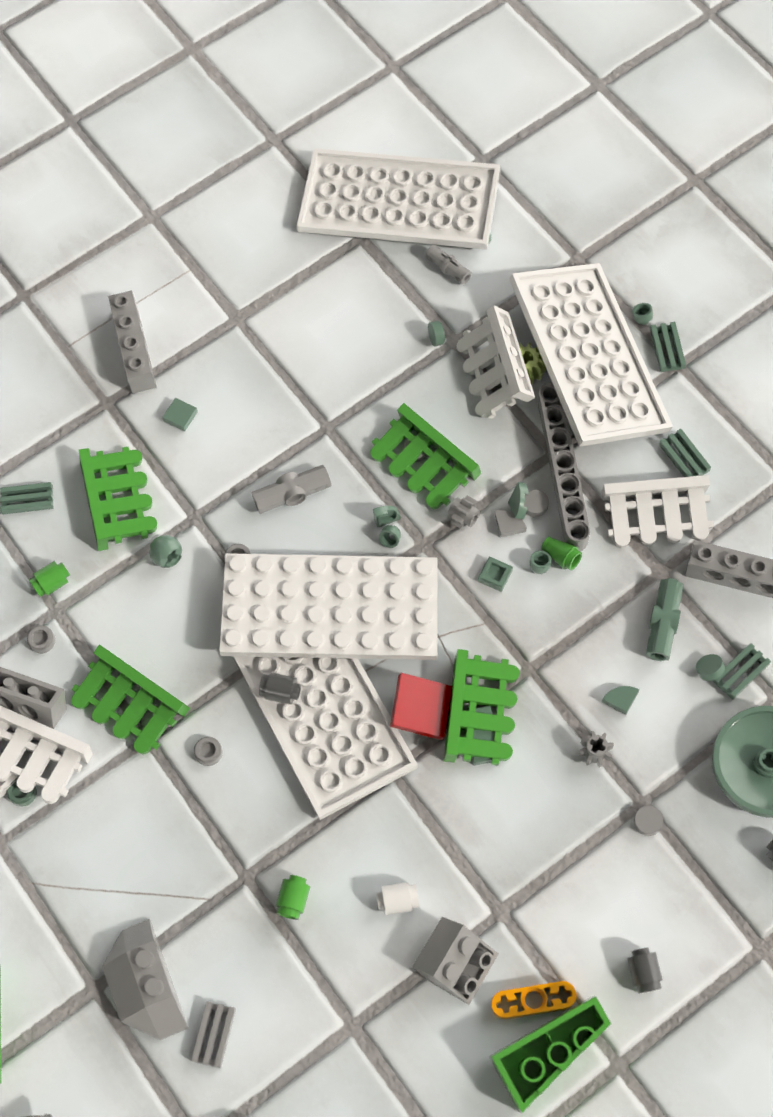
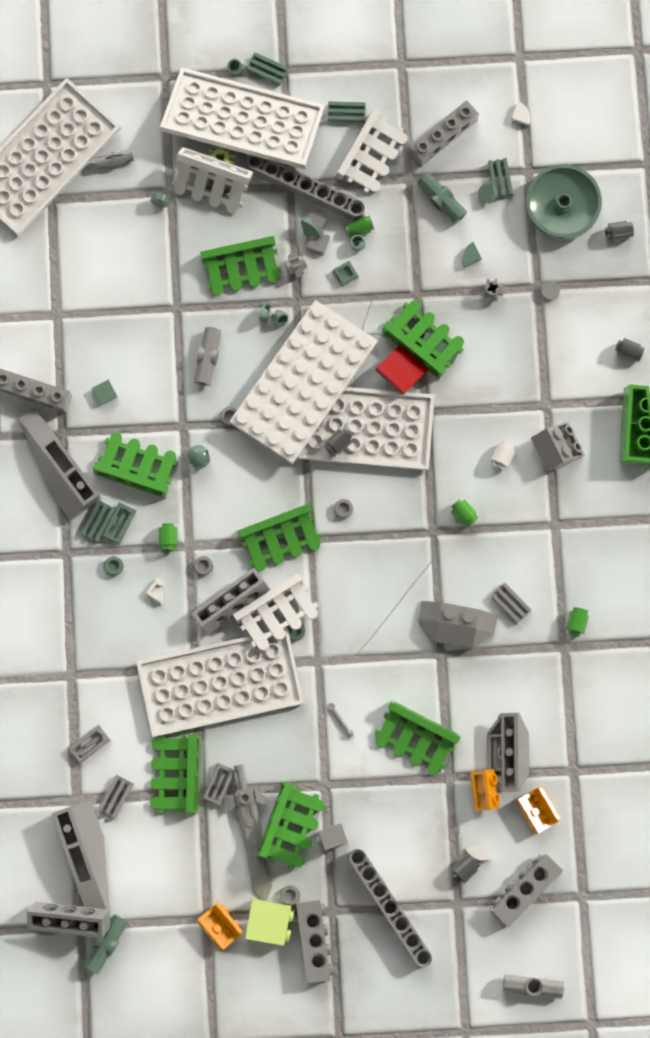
camera: 60 degrees left, 15 degrees up
(37, 524) = (112, 538): none -> sand green tile
(60, 424) = (58, 469): none -> light grey wedge
(556, 1003) = (604, 434): light orange beam -> none

